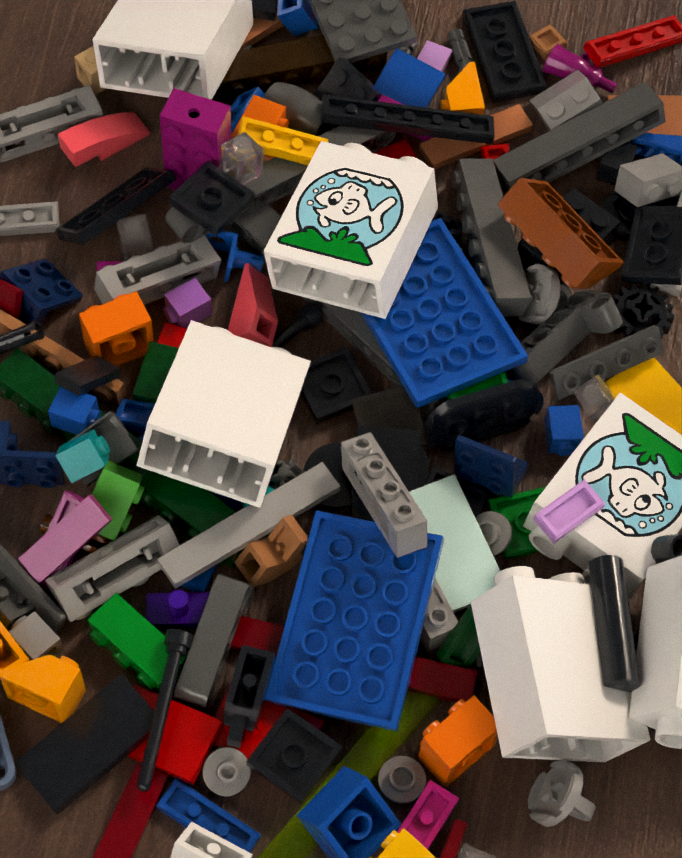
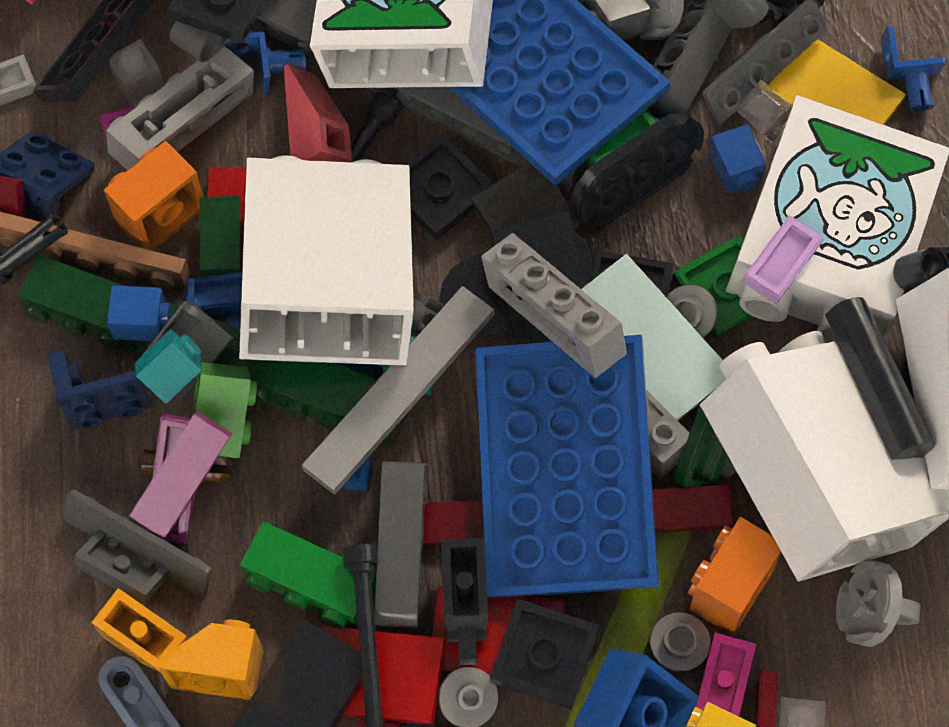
camera: 10 degrees left, 5 degrees up
(35, 637) = (183, 606): light grey brick -> none
(79, 598) = (248, 492): light grey brick -> none
(87, 375) = (139, 263): black tile -> none
(175, 609) = (342, 518): dark purple tile -> none
(187, 304) = (229, 137): medium lavender brick -> none
(274, 555) = (439, 416): medium nougat brick -> none
(488, 466) = (662, 232): dark blue bracket -> none

